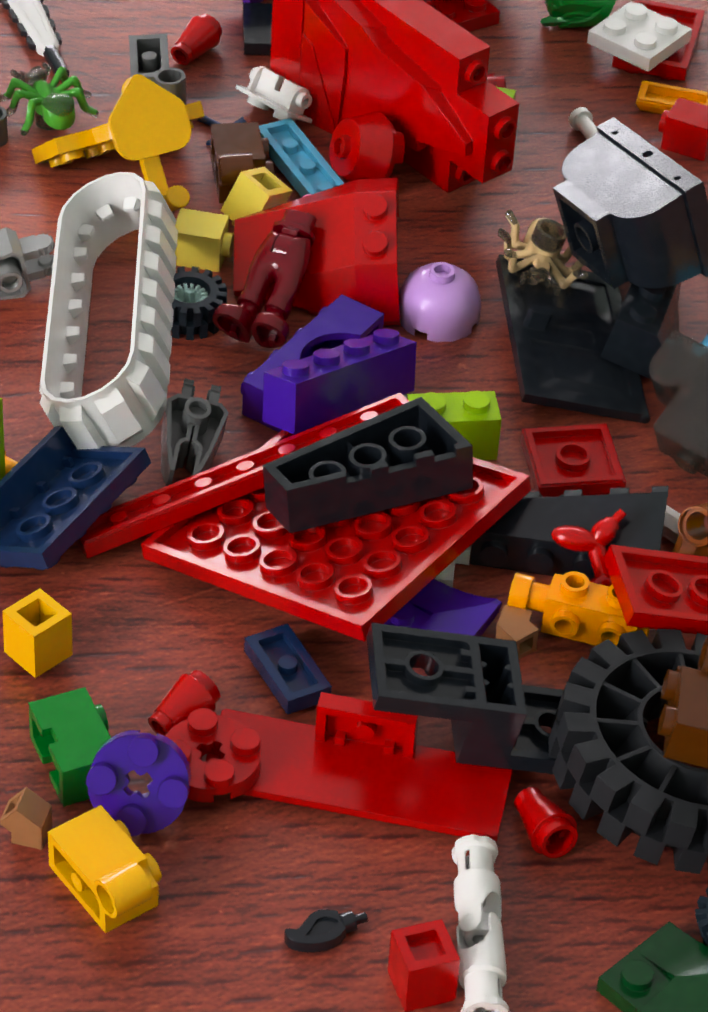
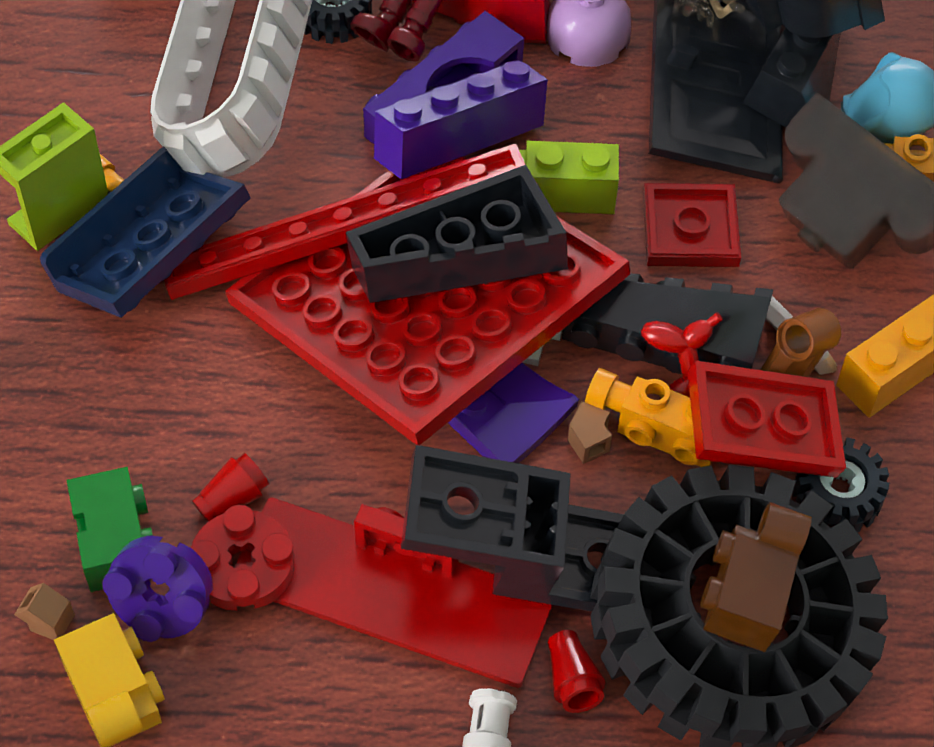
camera: 10 degrees right, 15 degrees up
(37, 632) = (96, 392): yellow brick -> none
(191, 430) = (302, 161): dark grey hinge -> none
(286, 668) = (345, 455): dark blue plate -> none

